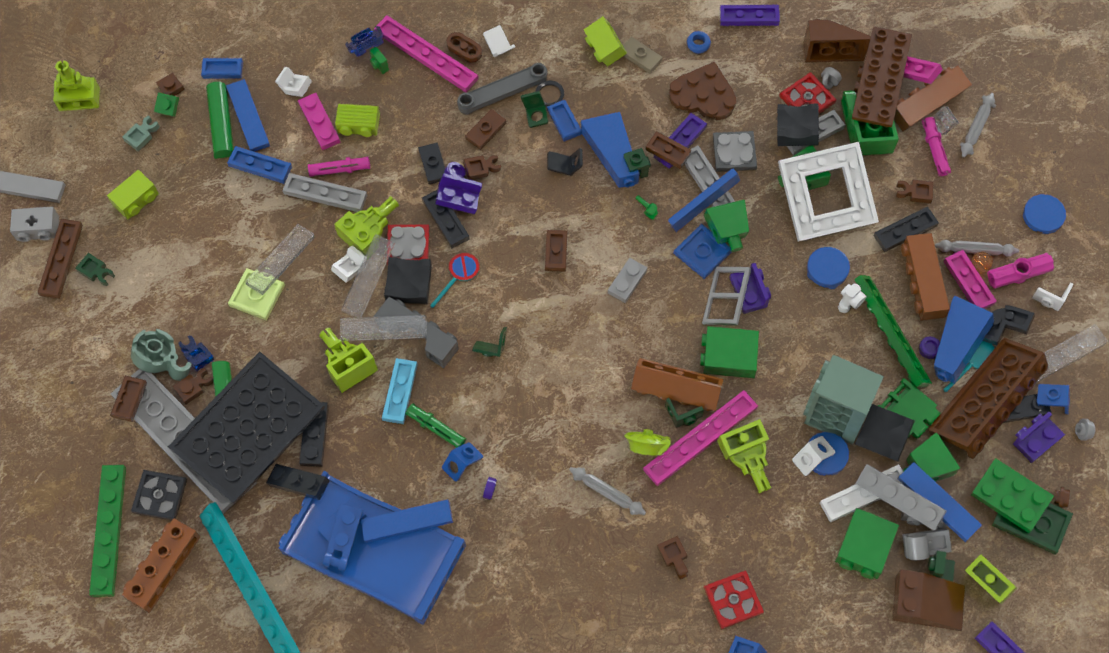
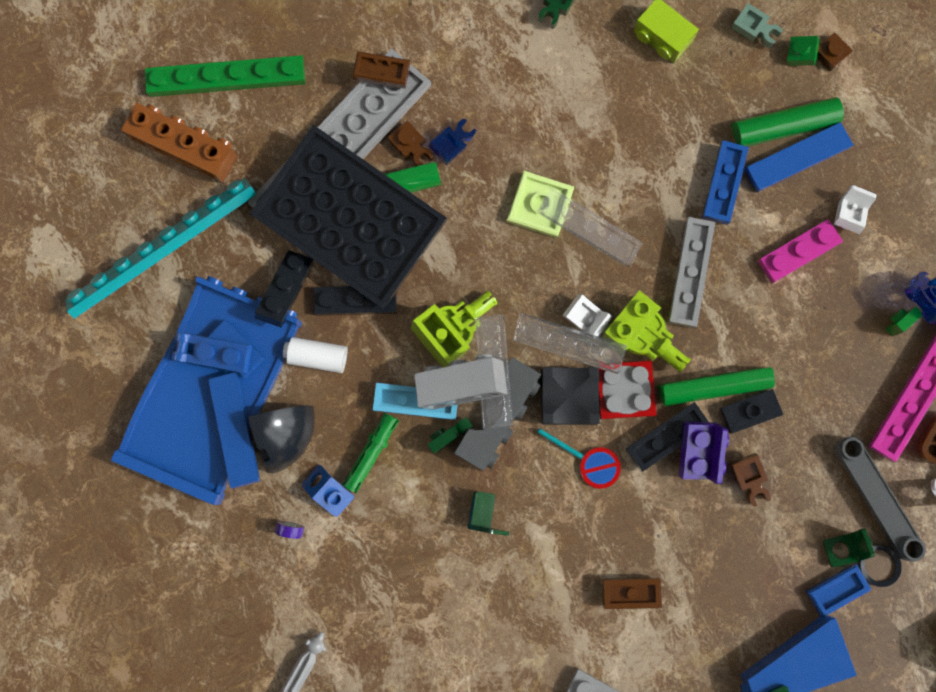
camera: 85 degrees right, 15 degrees up
(156, 353) = (437, 101): sand green piece -> none
(159, 495) = (267, 127): black piece -> none
(222, 68) = (867, 114): blue tile -> none
(354, 462) = (315, 354): none -> white brick
(357, 120) = (806, 302): lime brick -> none
(363, 163) = (733, 288): dark pink pin -> none
(388, 347) = (461, 382): none -> light grey brick
(411, 183) = (716, 386): none -> green brick
(415, 488) = (283, 435): none -> black brick
(430, 371) = (442, 438): none -> dark green plate
(455, 169) = (740, 443): dark purple tile -> none
(485, 129) = (812, 479): reddish brown plate -> none
(563, 163) = (768, 596): black bracket -> none

